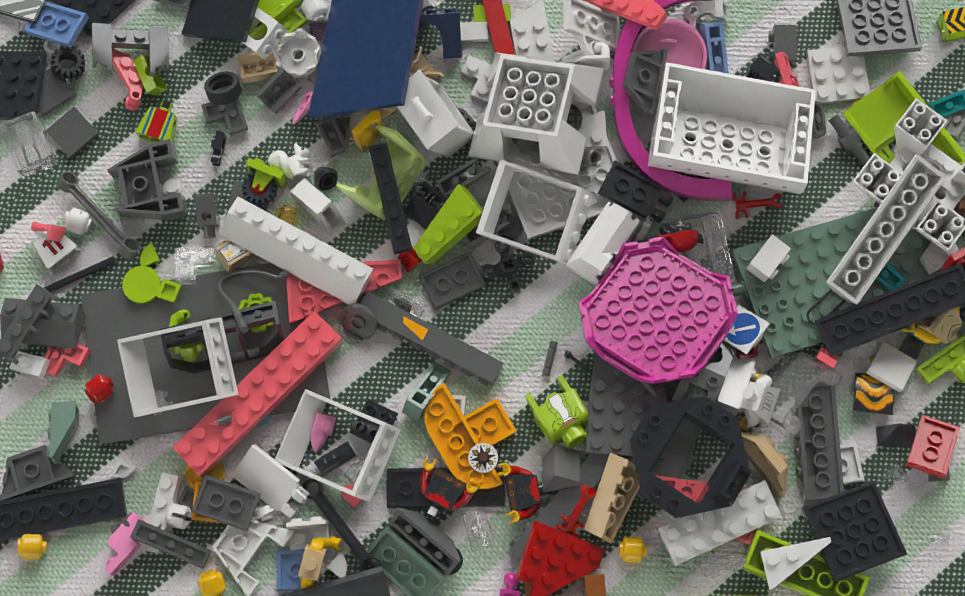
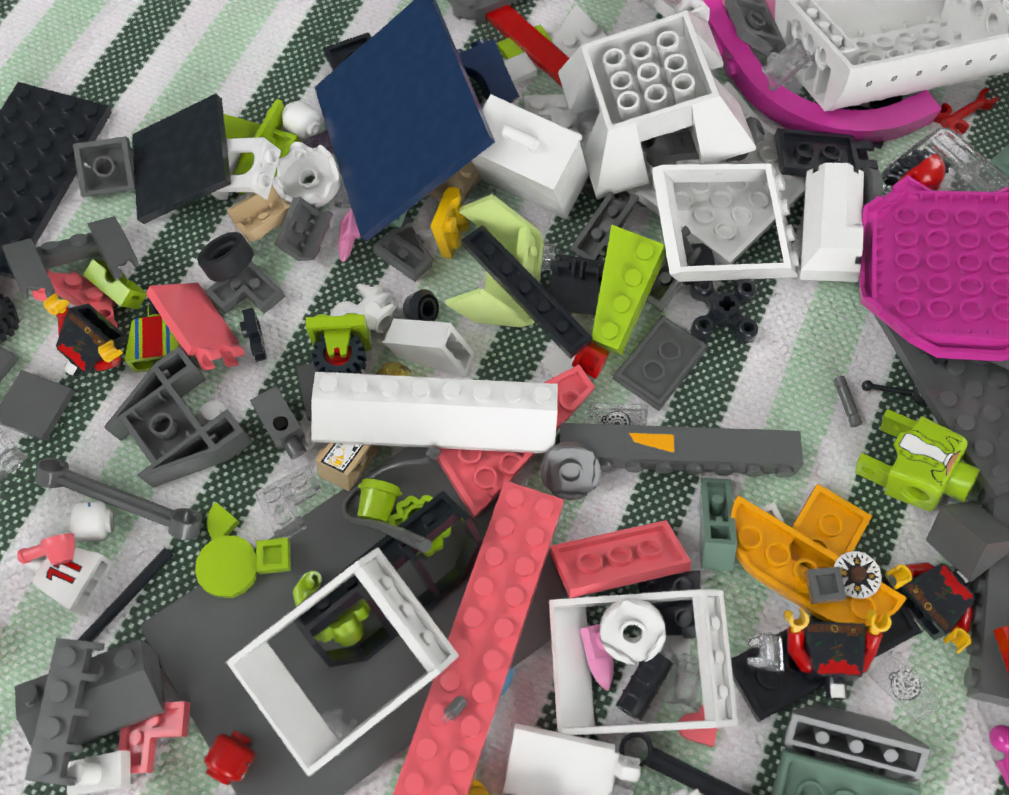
camera: 25 degrees left, 10 degrees down
(118, 107) = (85, 337): none -> torso
(186, 125) = (196, 323): none -> coral tile
(239, 287) = (377, 499): none -> lime piece
(349, 422) = (638, 613): none -> white tile
(357, 384) = (619, 558): none -> coral plate
(410, 474) = (770, 652): none -> clear tile
(458, 454) = (825, 585): none -> dark grey plate
(638, 121) = (784, 65): none -> clear hips

